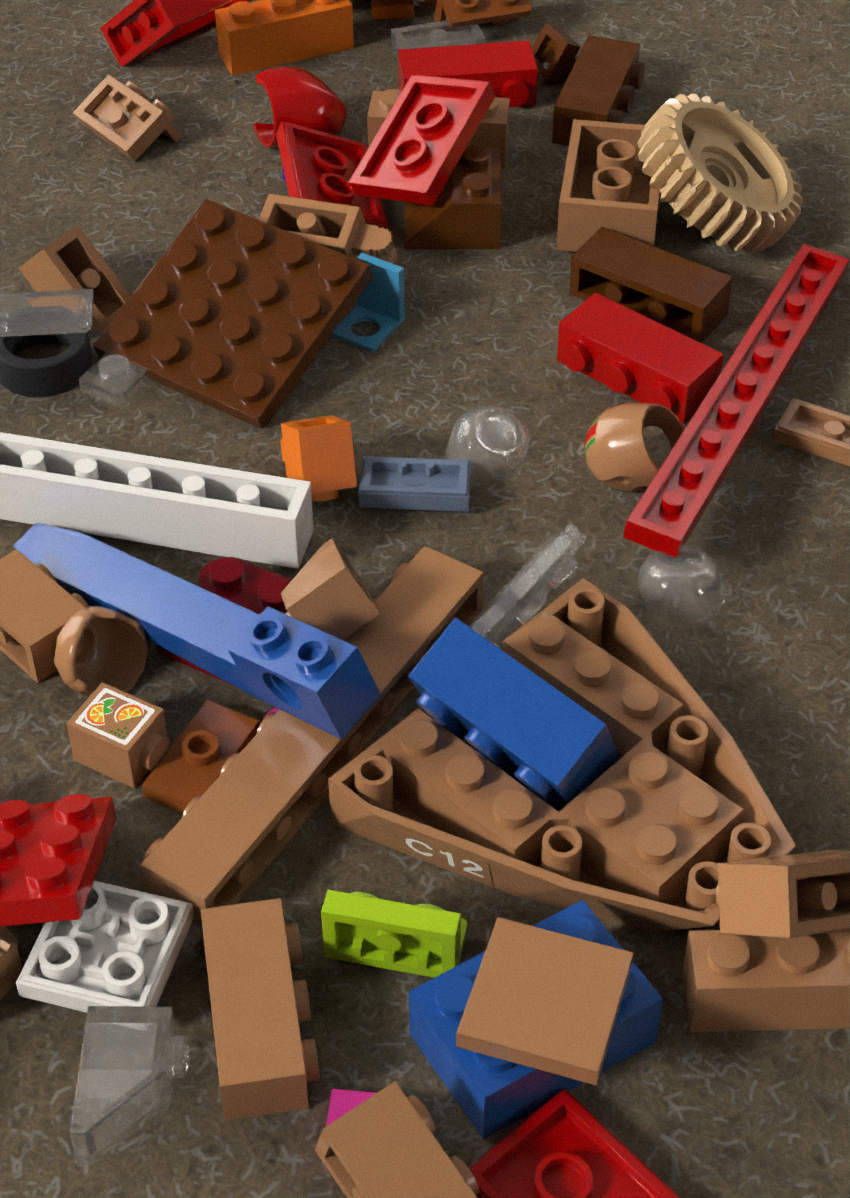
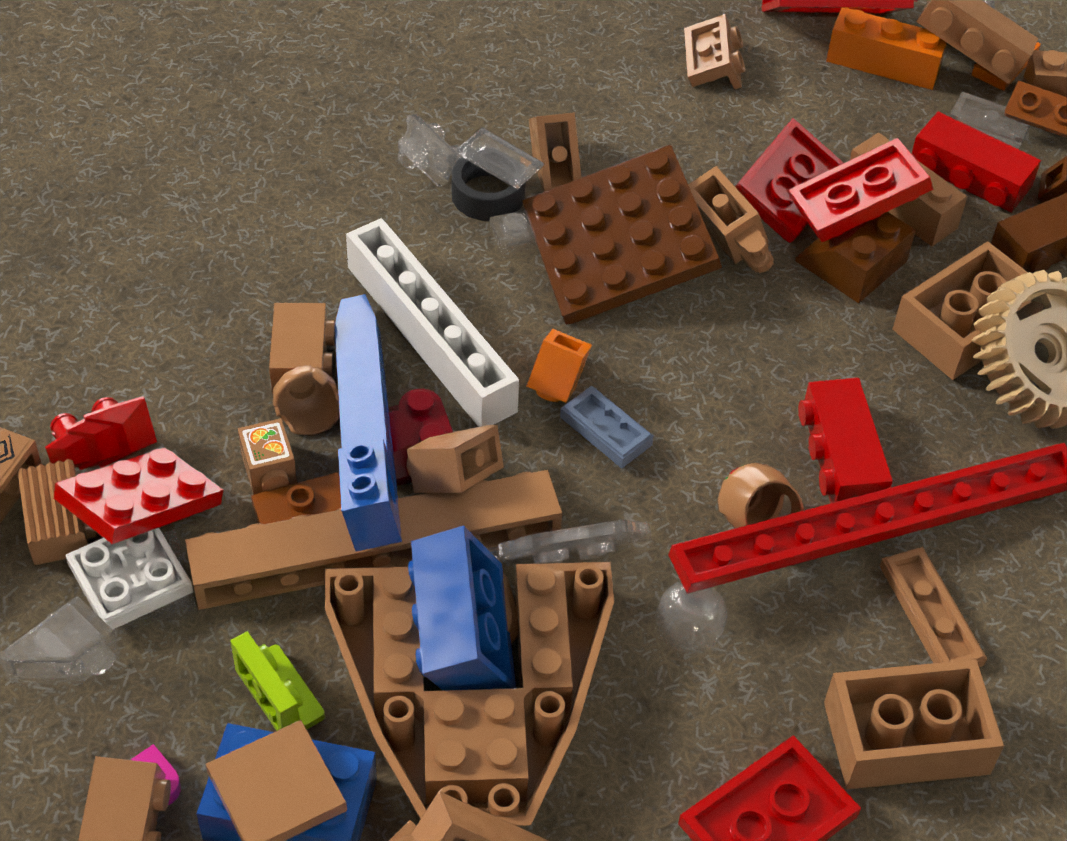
camera: 40 degrees right, 5 degrees up
(258, 1009) = (163, 667): medium nougat brick -> none
(300, 100) = (827, 111): red piece -> none
(378, 303) = (725, 289): dark azure bracket -> none
(492, 440) = (684, 433): clear hair -> none
(651, 283) = (918, 399): reddish brown brick -> none

